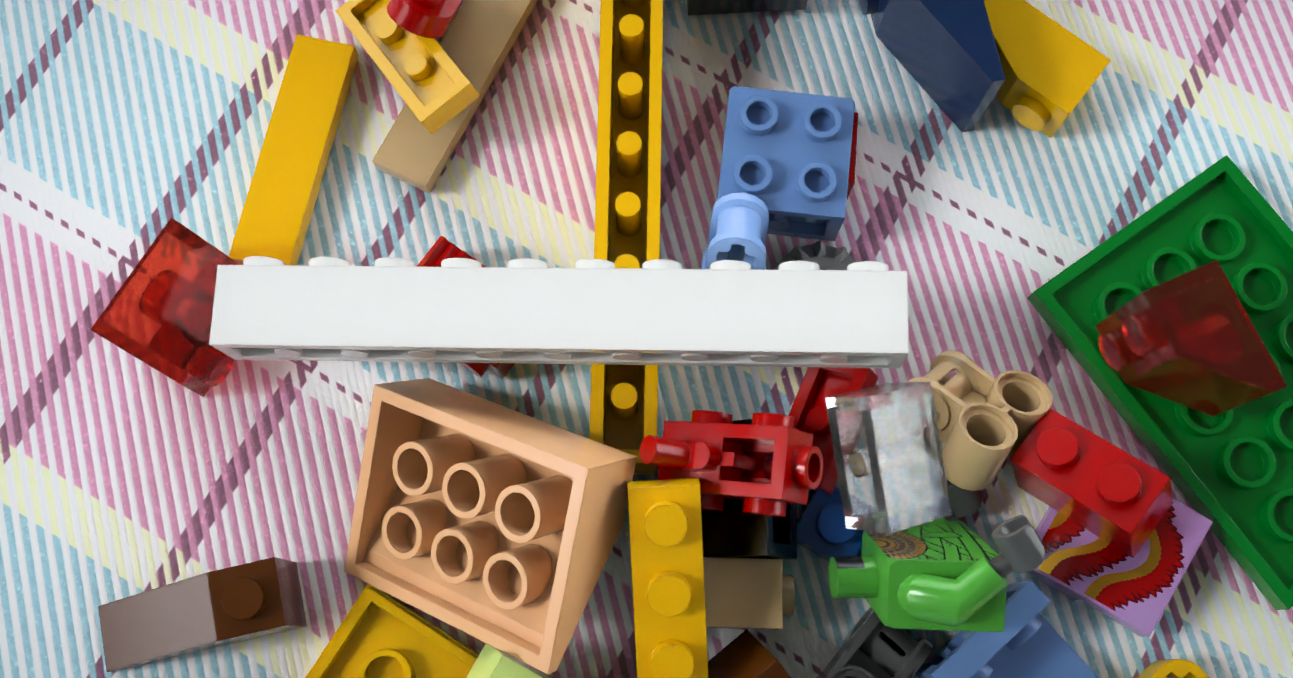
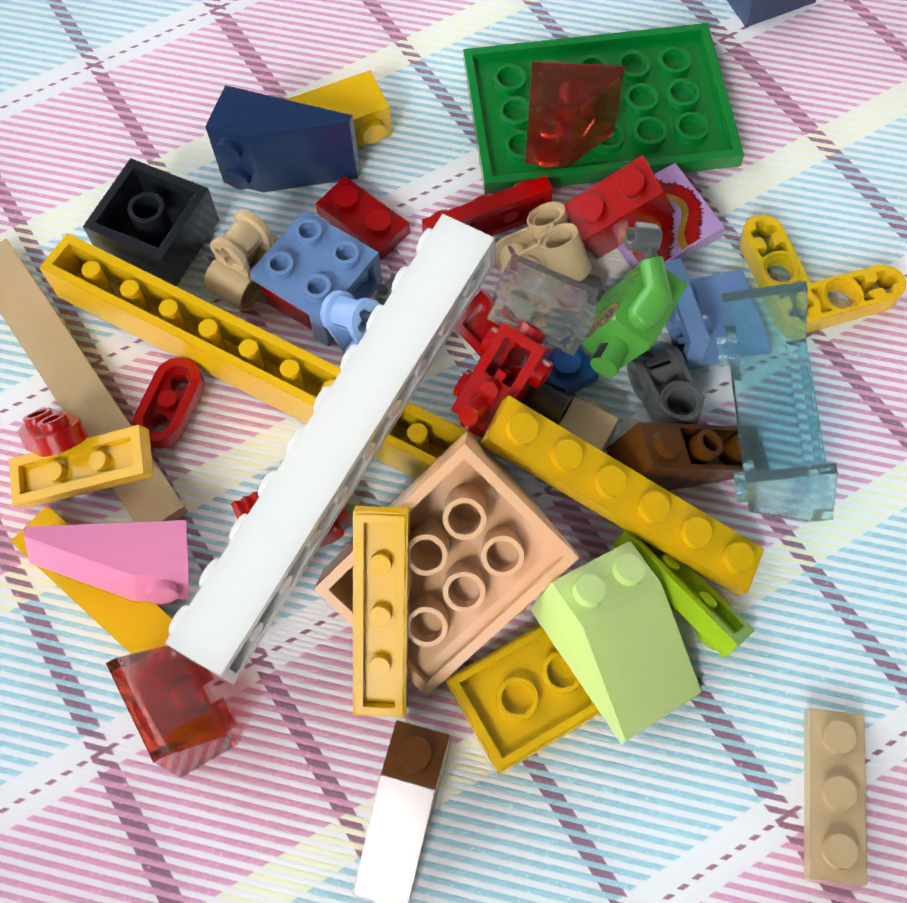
camera: 60 degrees left, 10 degrees down
(328, 171) = (123, 558): none -> bright pink slope
(389, 470) = (380, 610): none -> yellow tile
(538, 92) = (165, 404): none -> red plate
(755, 61) = (235, 257): none -> tan piece
(905, 170) = (363, 217): none -> red plate
(992, 318) = (501, 210): none -> red plate

